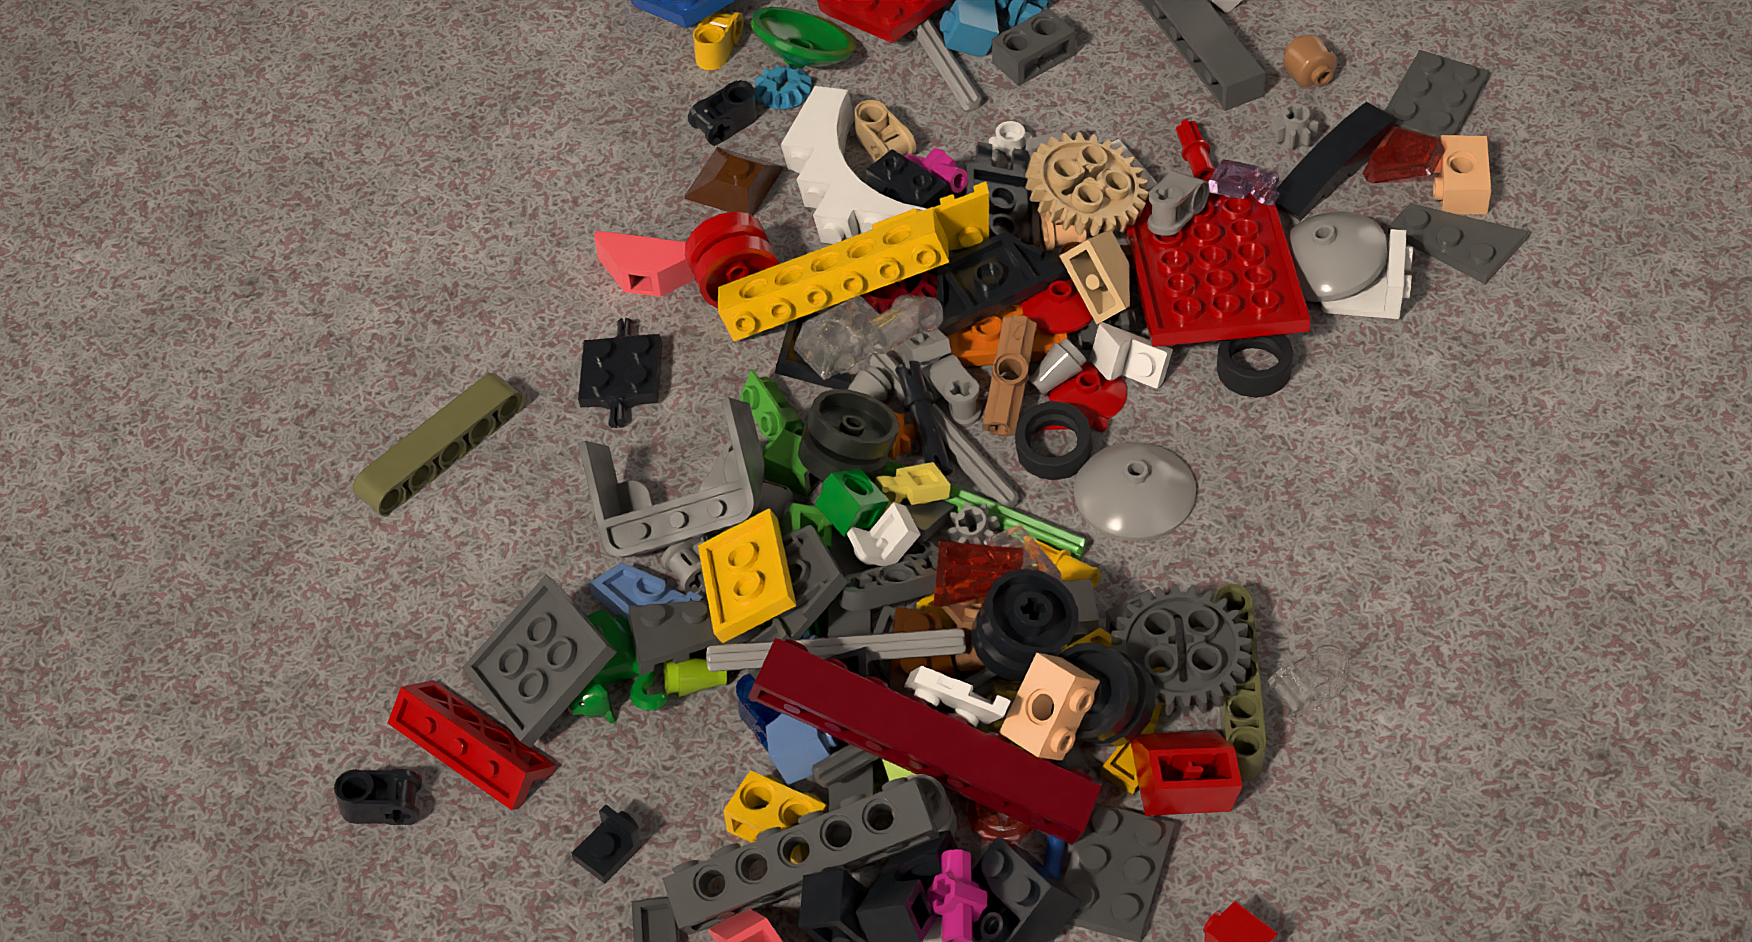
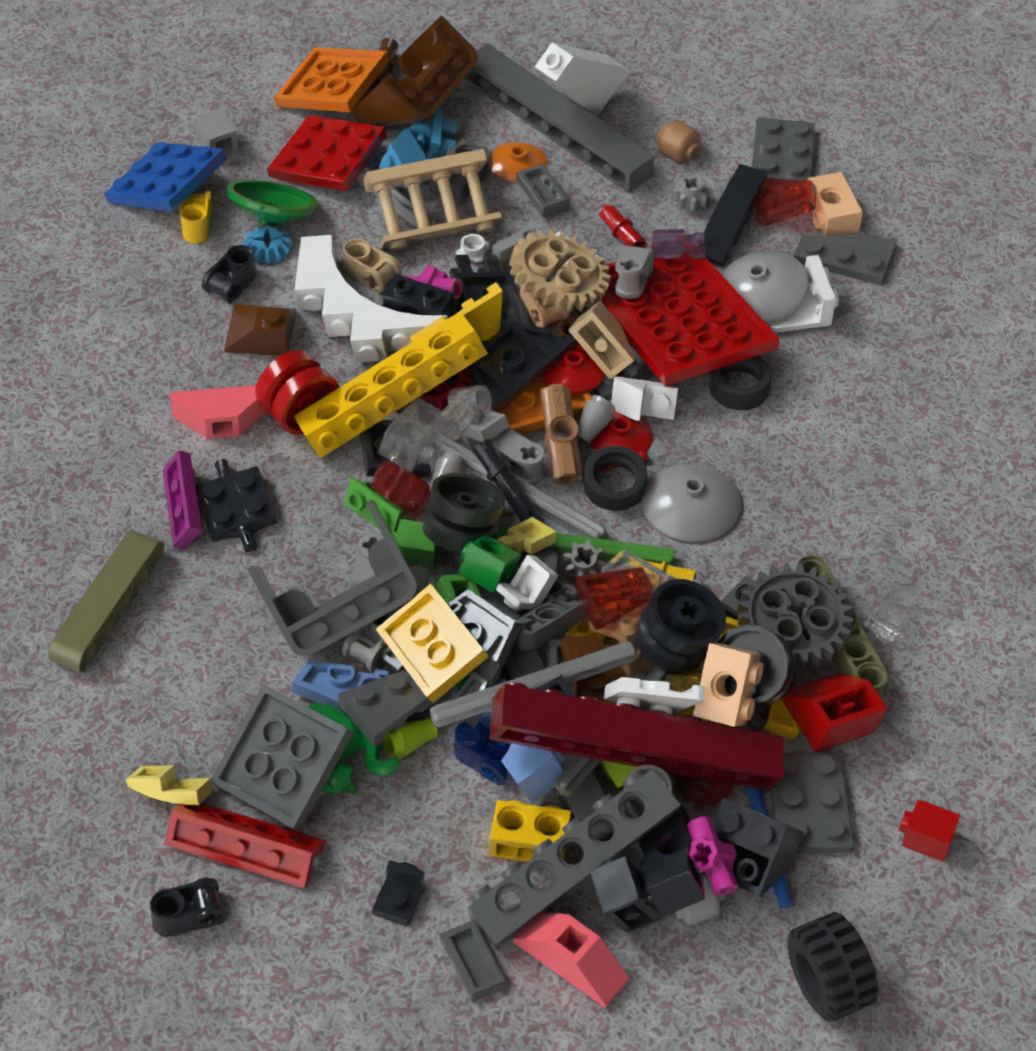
camera: 25 degrees left, 0 degrees up
(413, 659) = (162, 784): none -> light yellow slope
(564, 353) = (182, 500): none -> magenta plate
(796, 388) = (400, 486): none -> clear red gear
(998, 41) = (440, 171): none -> tan fence
(1110, 48) = (516, 157): none -> orange dish
(1121, 87) = (542, 190): none -> dark grey plate

